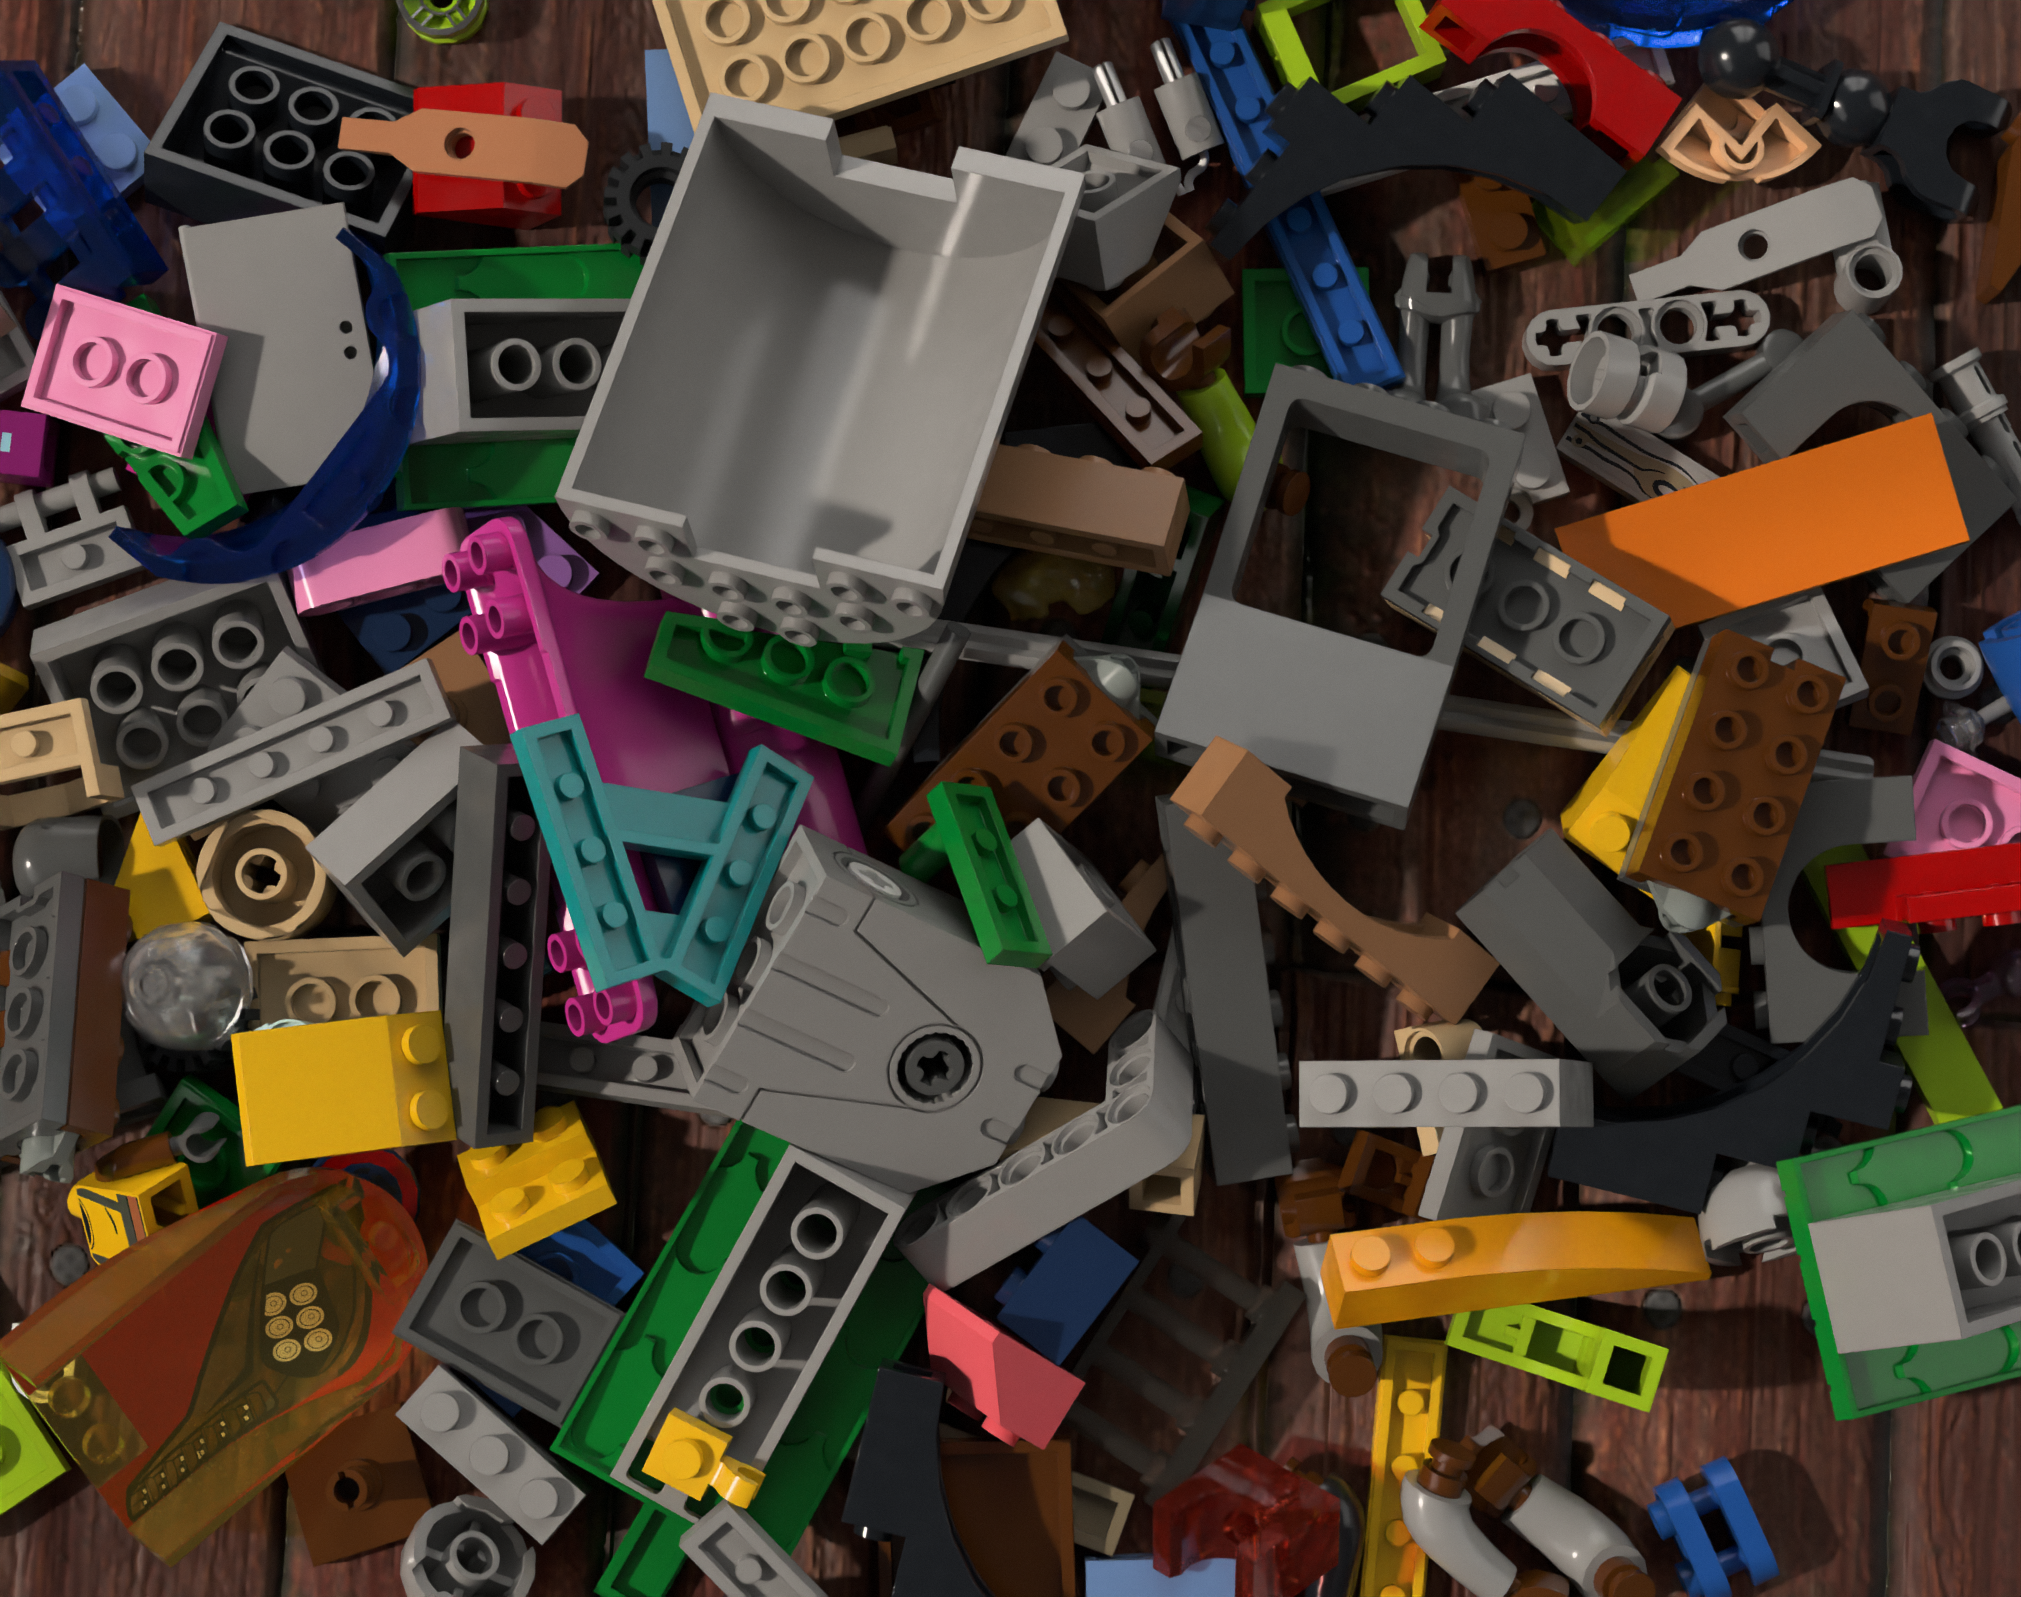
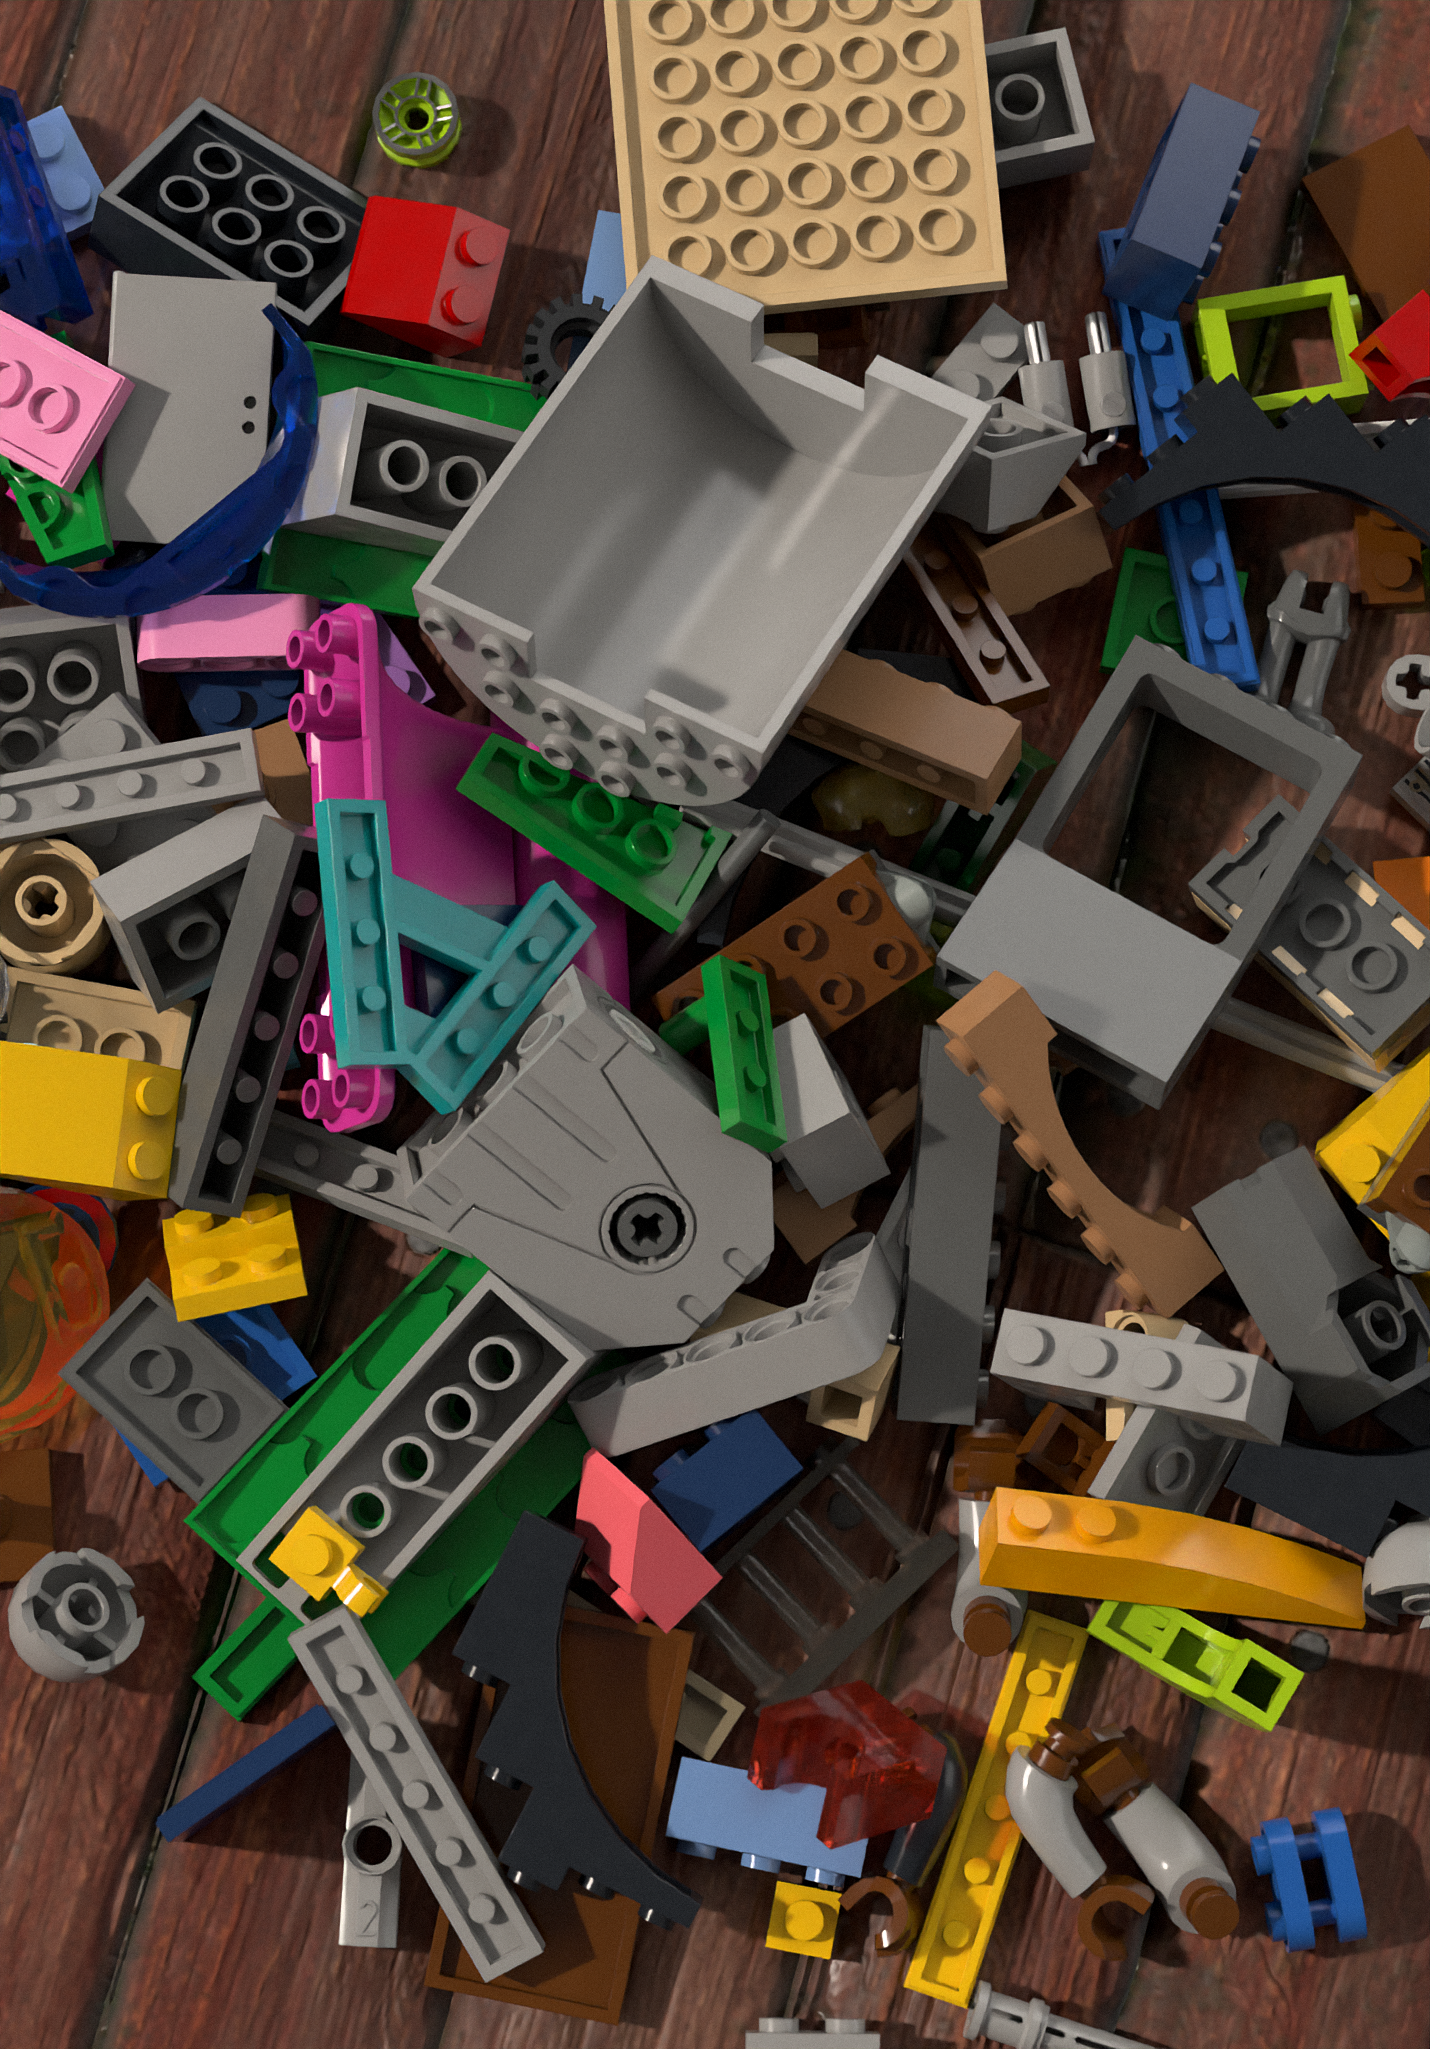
camera: 15 degrees right, 5 degrees down
(494, 1452) = (128, 1515): light grey brick -> none
(503, 150) = (441, 267): nougat piece -> none
(1189, 365) = (1050, 618): piece -> none
(1540, 471) = (1370, 805): light grey hinge -> none

